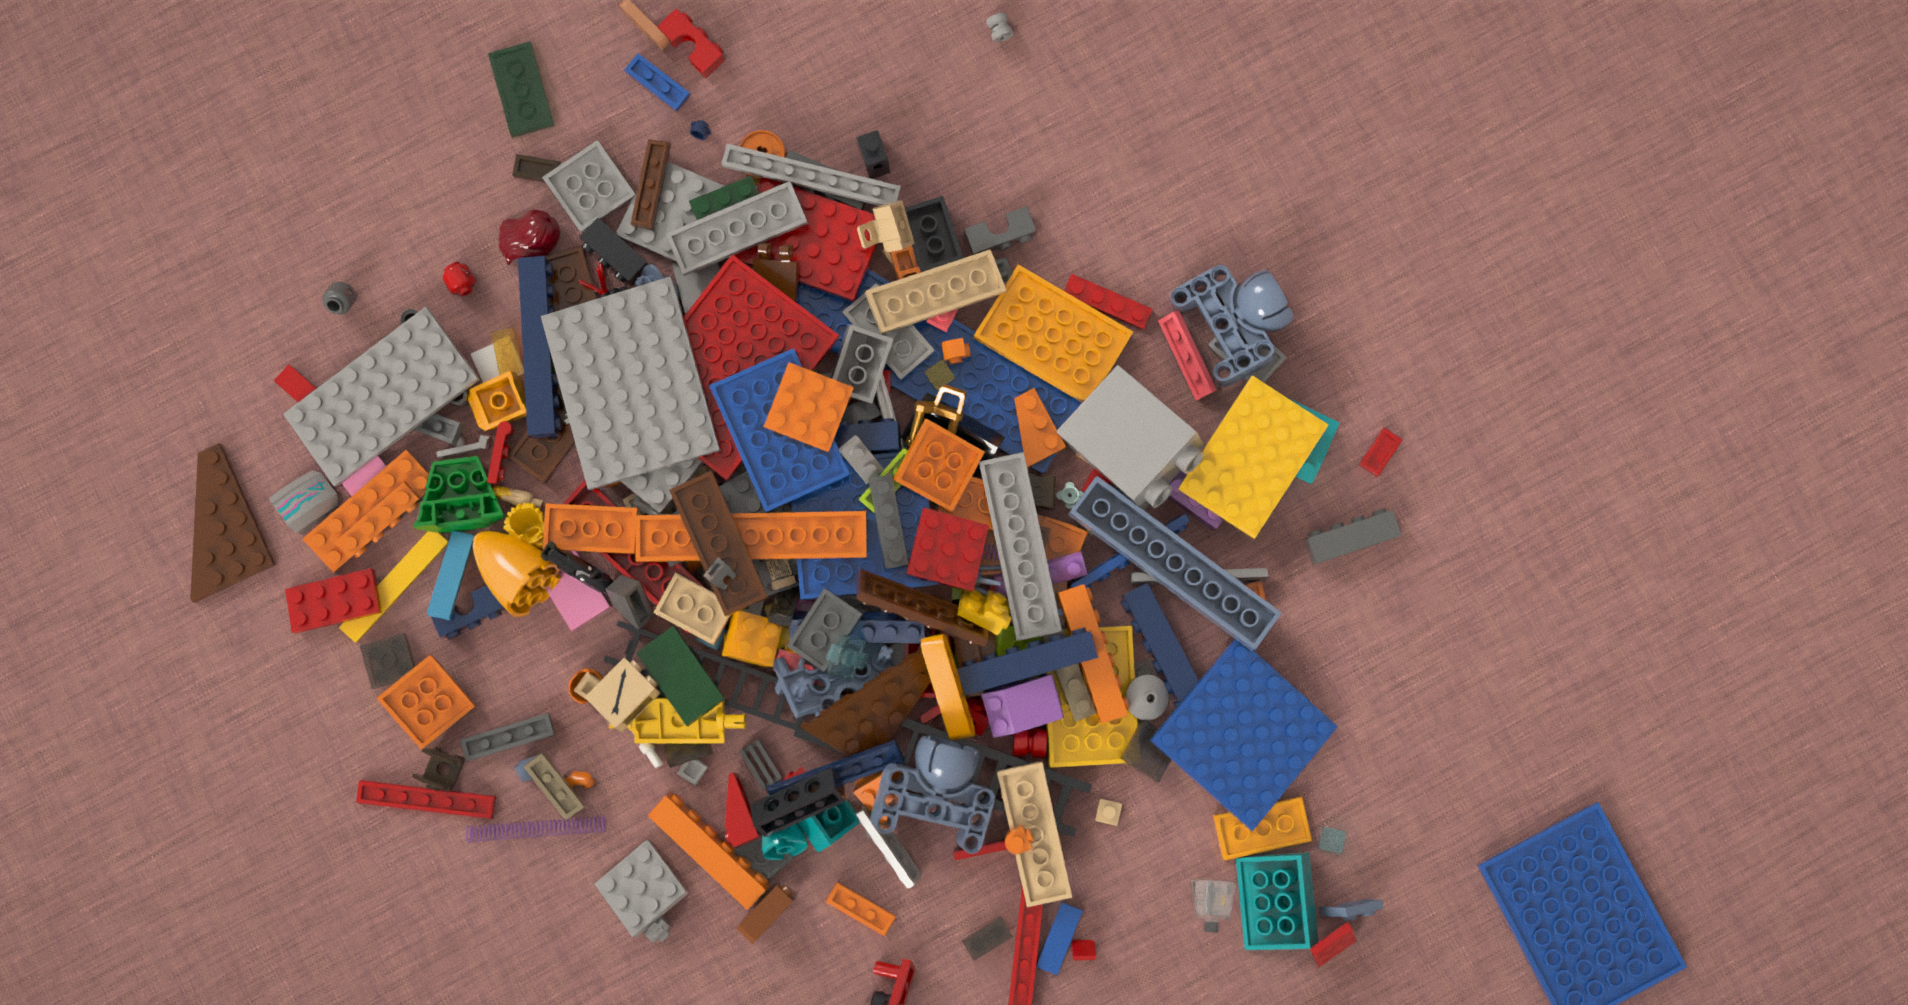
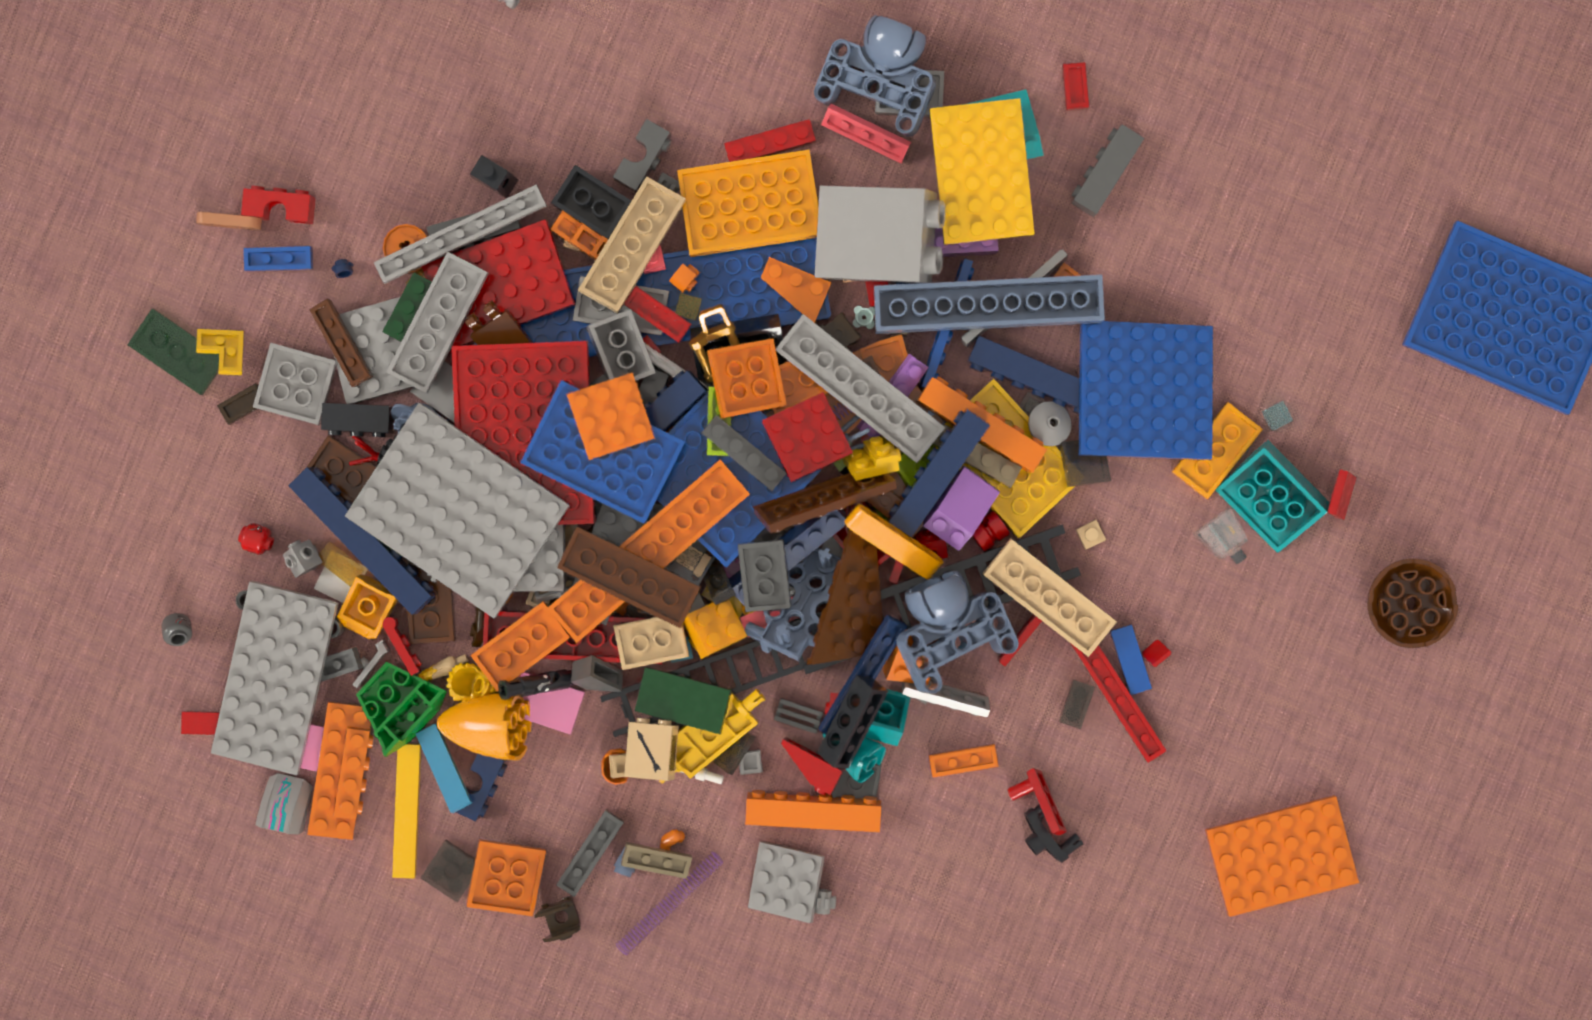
camera: 35 degrees left, 5 degrees up
(226, 535) = (244, 877): reddish brown wing -> none
(333, 601) = (370, 861): red plate -> none
(426, 799) = (567, 950): red tile -> none
(481, 322) = (302, 557): none -> light grey brick
(528, 236) = (281, 461): dark red piece -> none
(562, 112) = (226, 344): none -> yellow plate
(568, 488) = (477, 628): none -> dark brown piece
(717, 573) = (647, 600): dark grey tile -> none
(766, 913) = (895, 823): dark orange slope -> none
(846, 656) = (798, 582): clear light blue piece -> none
(860, 459) = (683, 422): light grey plate -> none
(889, 227) = (554, 224): tan piece -> none
(911, 360) = (657, 314): none -> red plate
(1019, 840) = (1042, 612): orange plate -> none
(1351, 909) = (1334, 456): sand blue wing -> none

